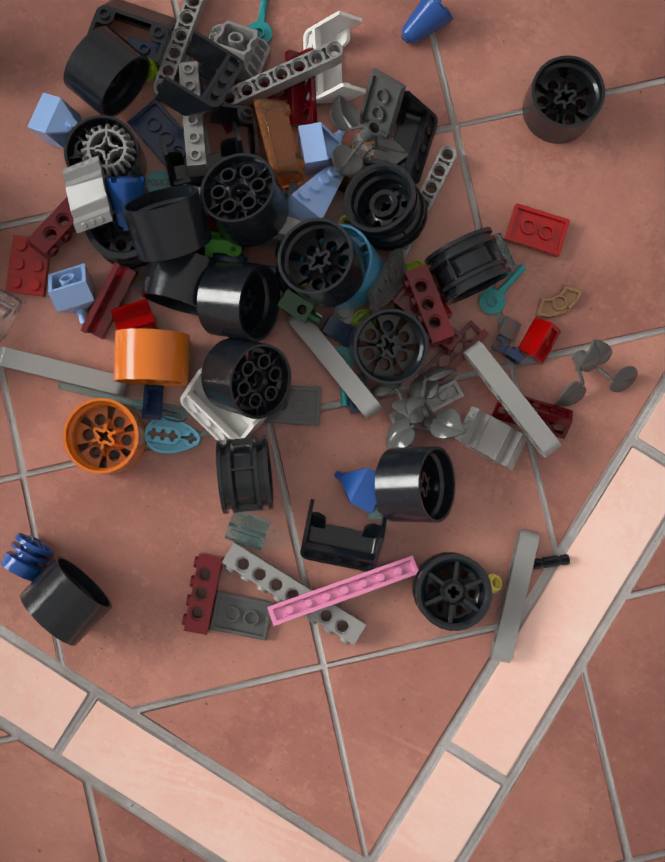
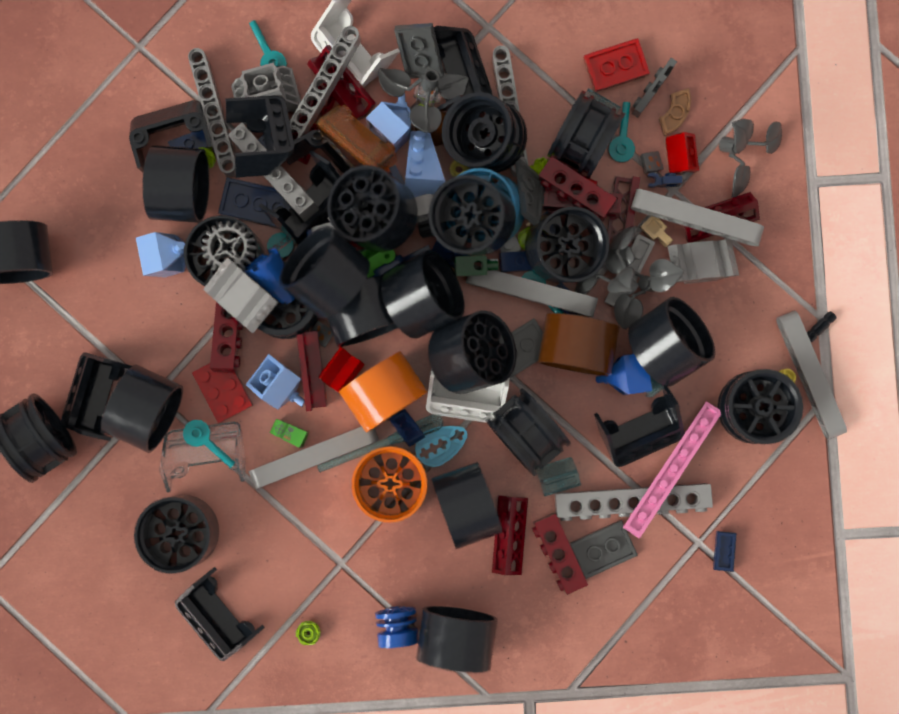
camera: 30 degrees left, 0 degrees up
(56, 339) = (289, 433): none -> bright green leg
(151, 498) = (467, 505): none -> black wheel
(171, 547) = (503, 544): none -> dark red fence
(338, 432) = (578, 344): none -> reddish brown wheel
(339, 688) = (724, 551): none -> dark blue plate
(472, 385) = (654, 229): none -> tan plate
(553, 269) = (651, 89): none -> dark grey wing

